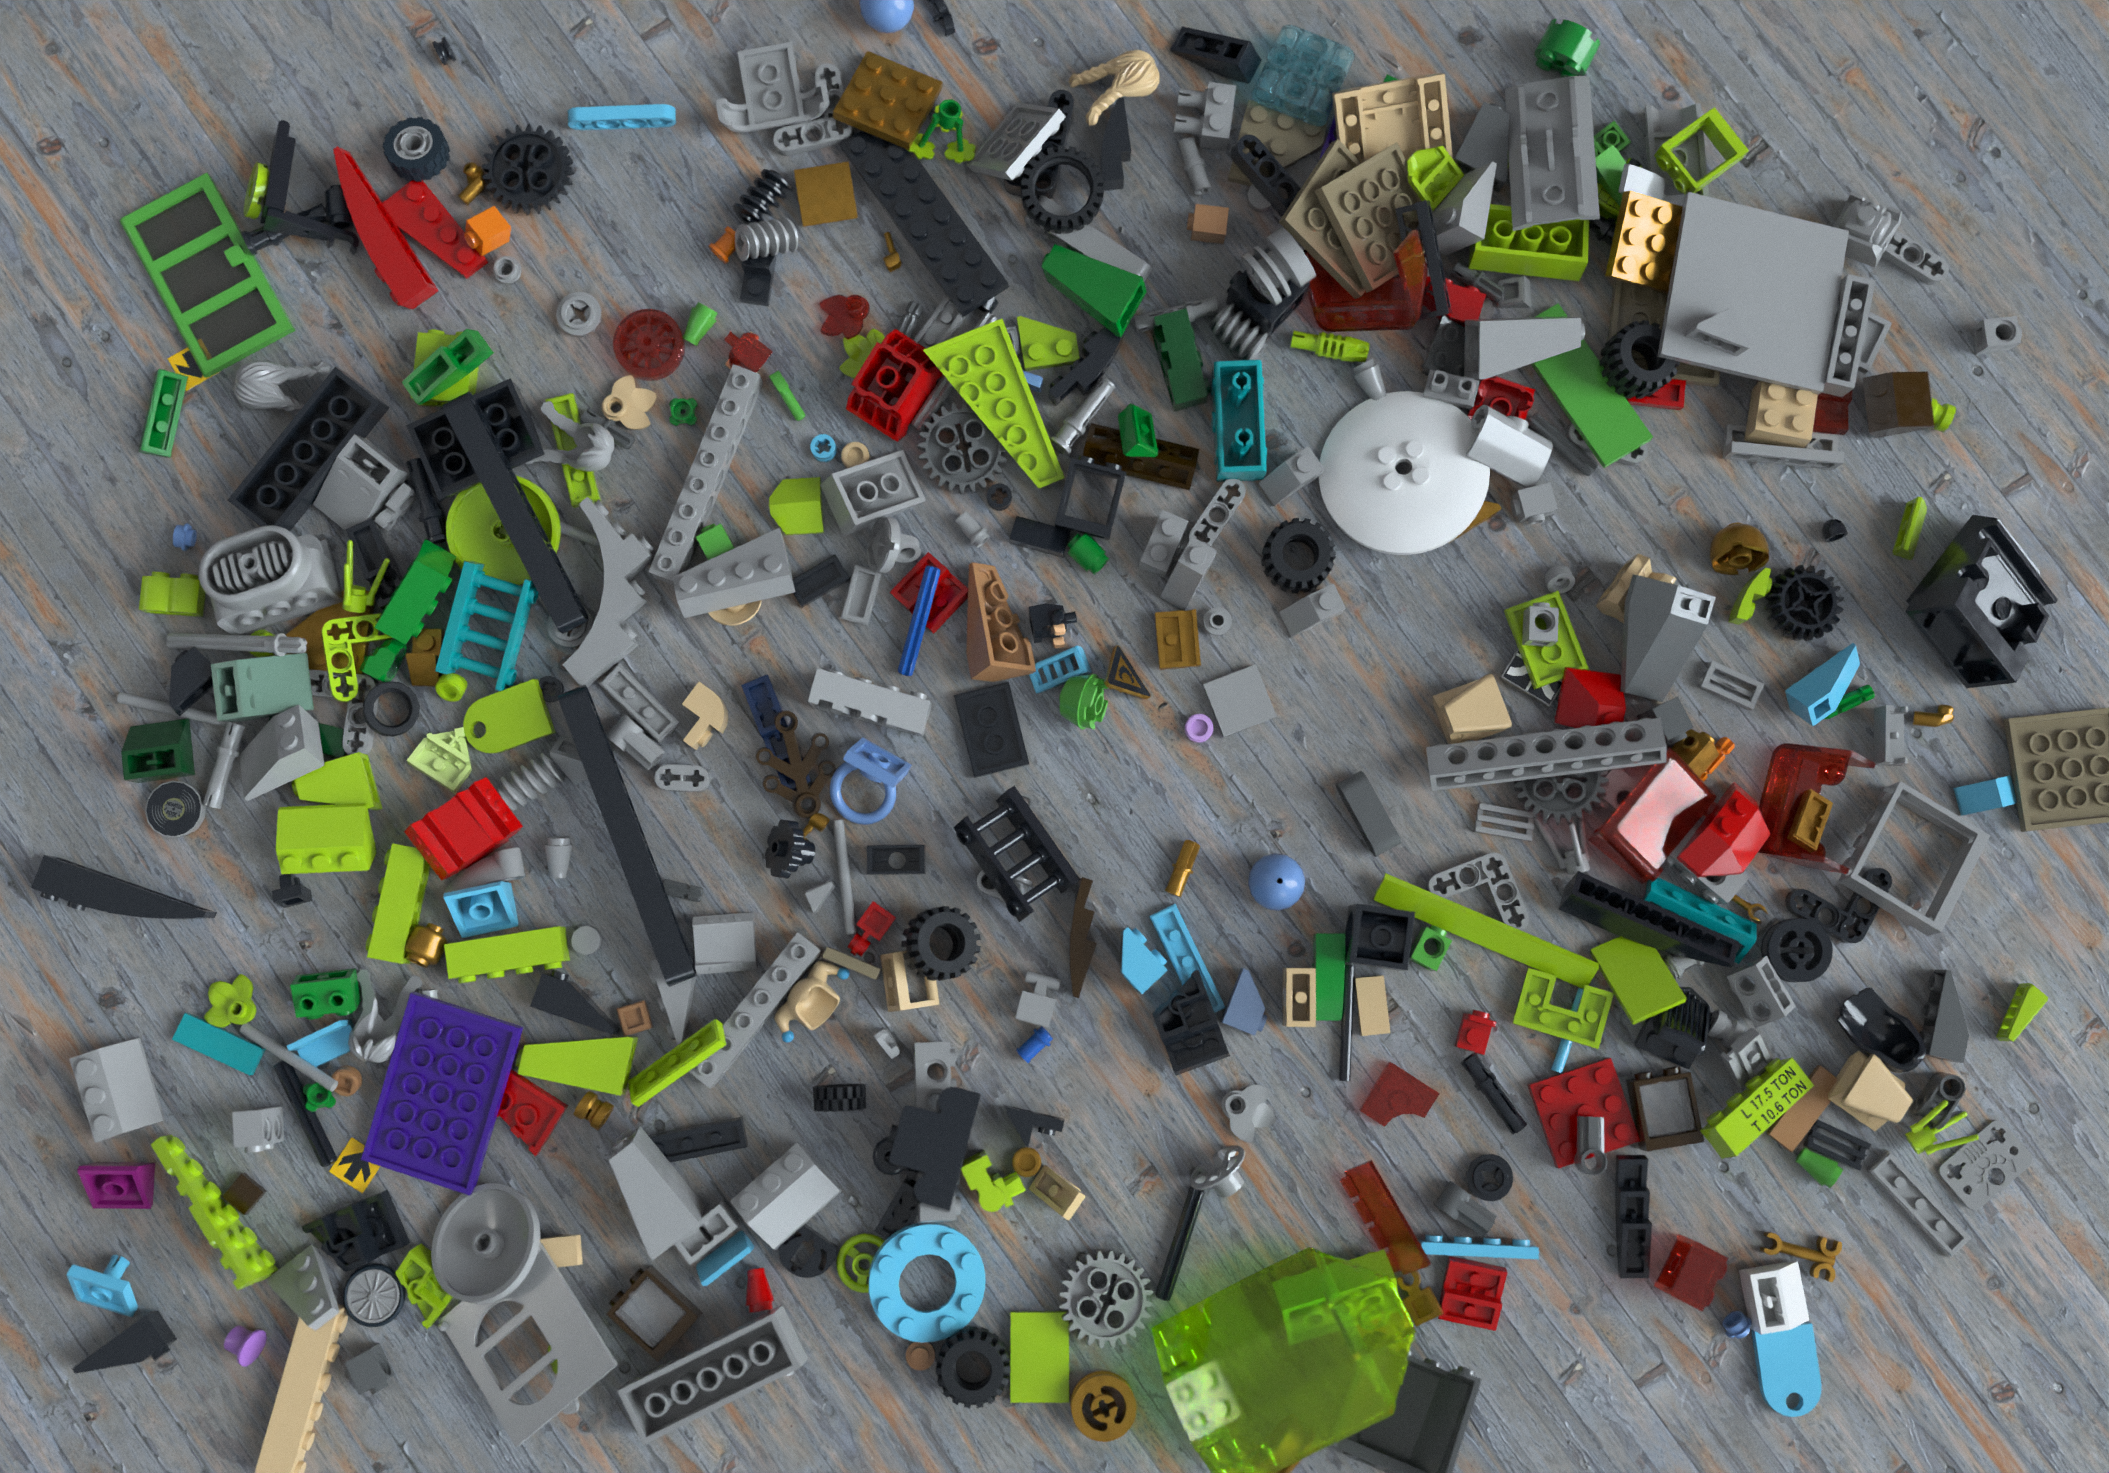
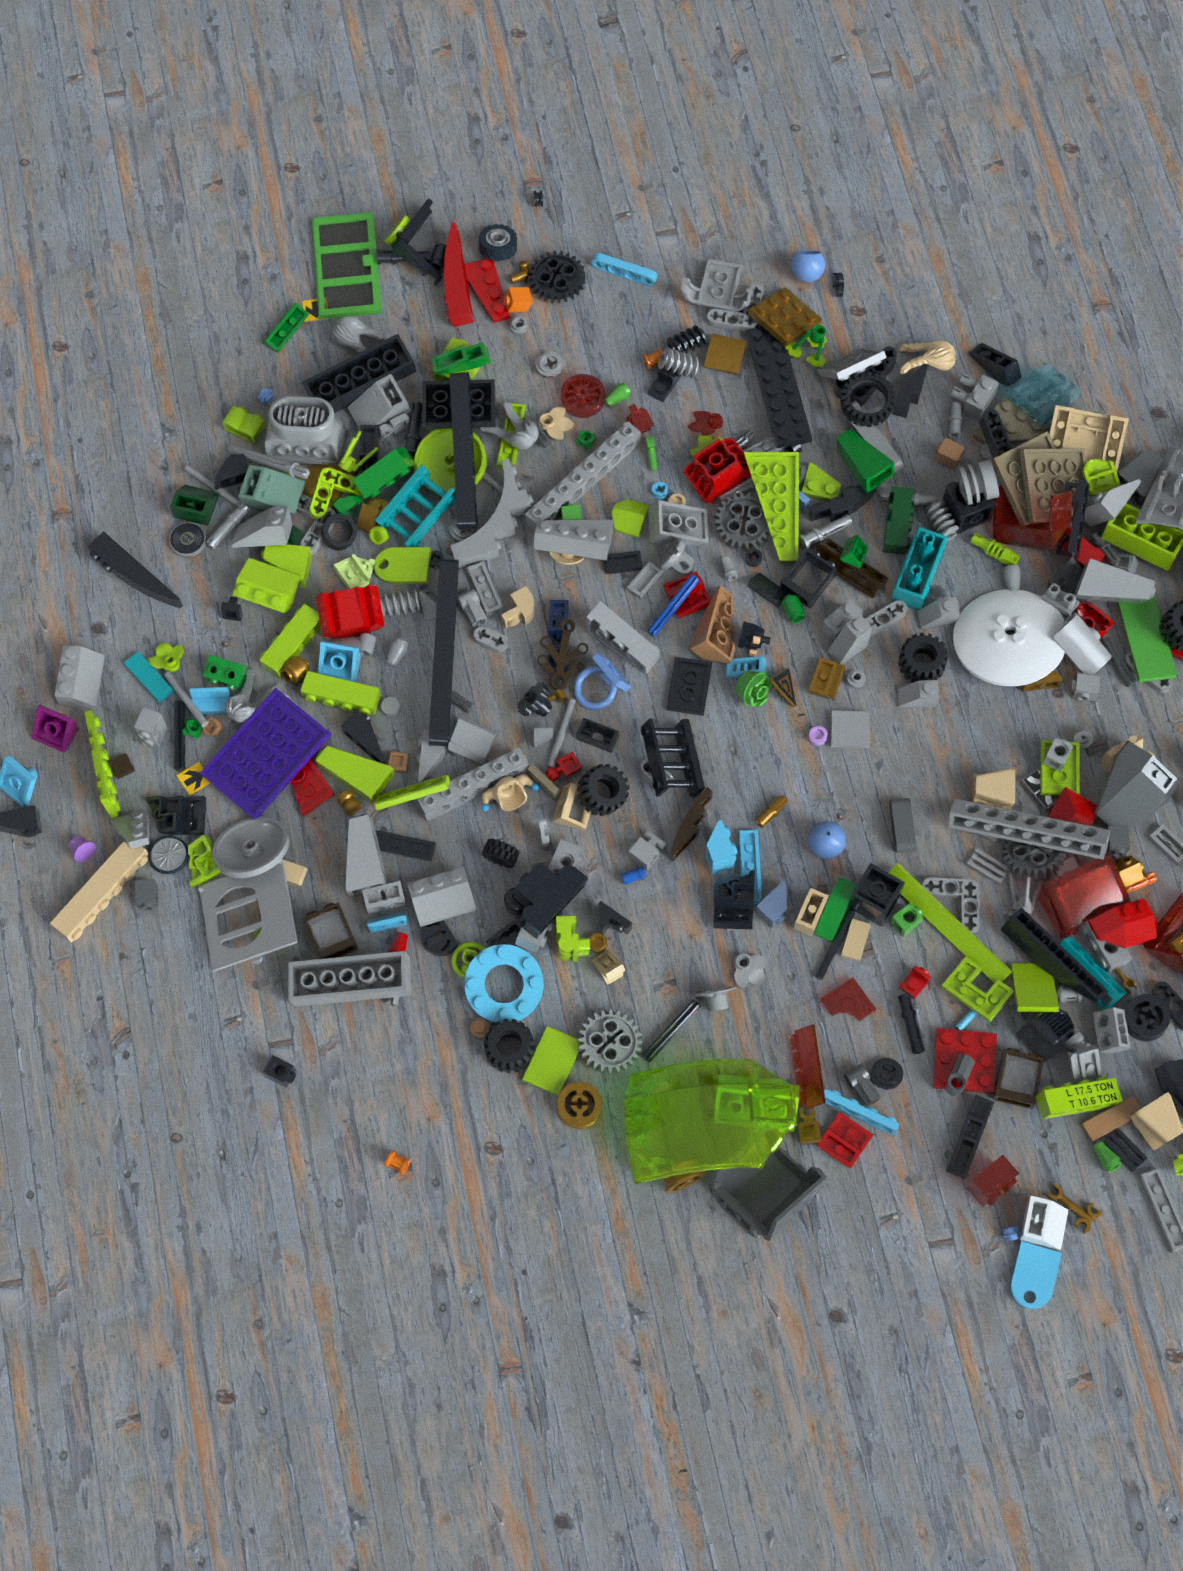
camera: 30 degrees right, 15 degrees down
(892, 260) = (748, 404): pearl gold hand -> none

